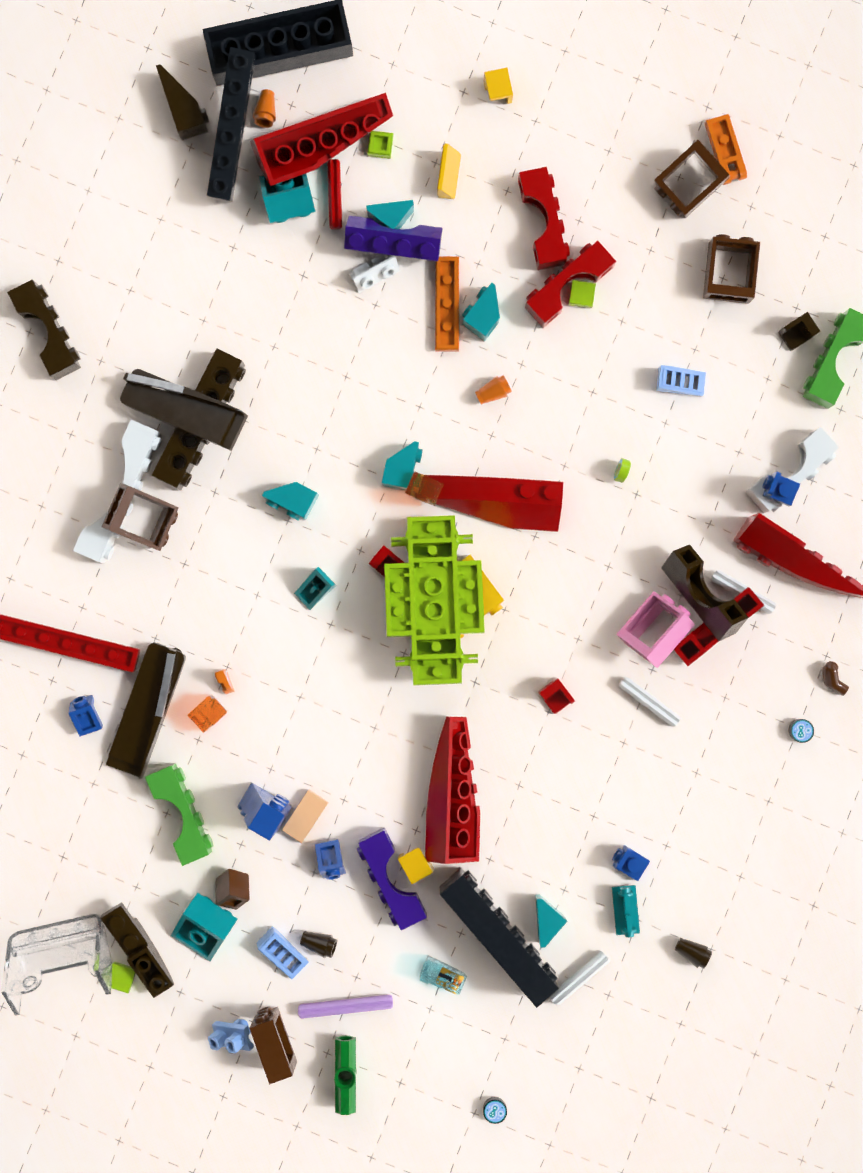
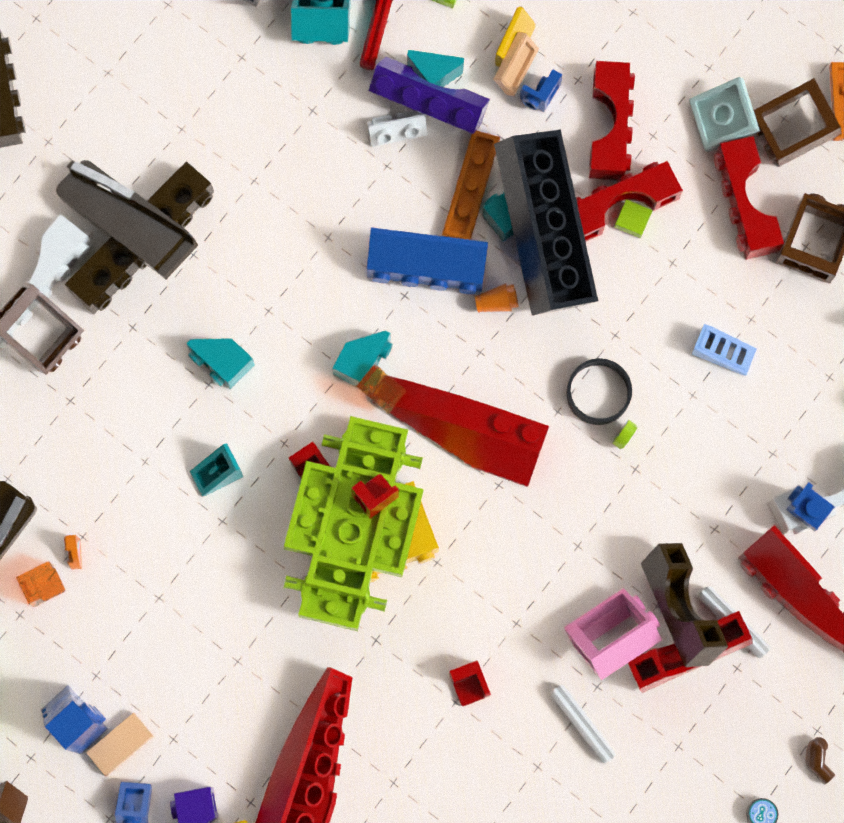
camera: 15 degrees right, 10 degrees down
(431, 375) = (426, 260): none -> blue slope
(445, 576) = (374, 495): none -> red panel
(455, 192) = (516, 63): none -> light nougat tile
(485, 207) = (544, 92): none -> blue bracket
(516, 319) = (546, 222): none -> black brick
(606, 421) = (599, 362): none -> black tyre
(632, 188) = (724, 114): none -> light aqua plate
(682, 277) = (757, 232): none -> red arch

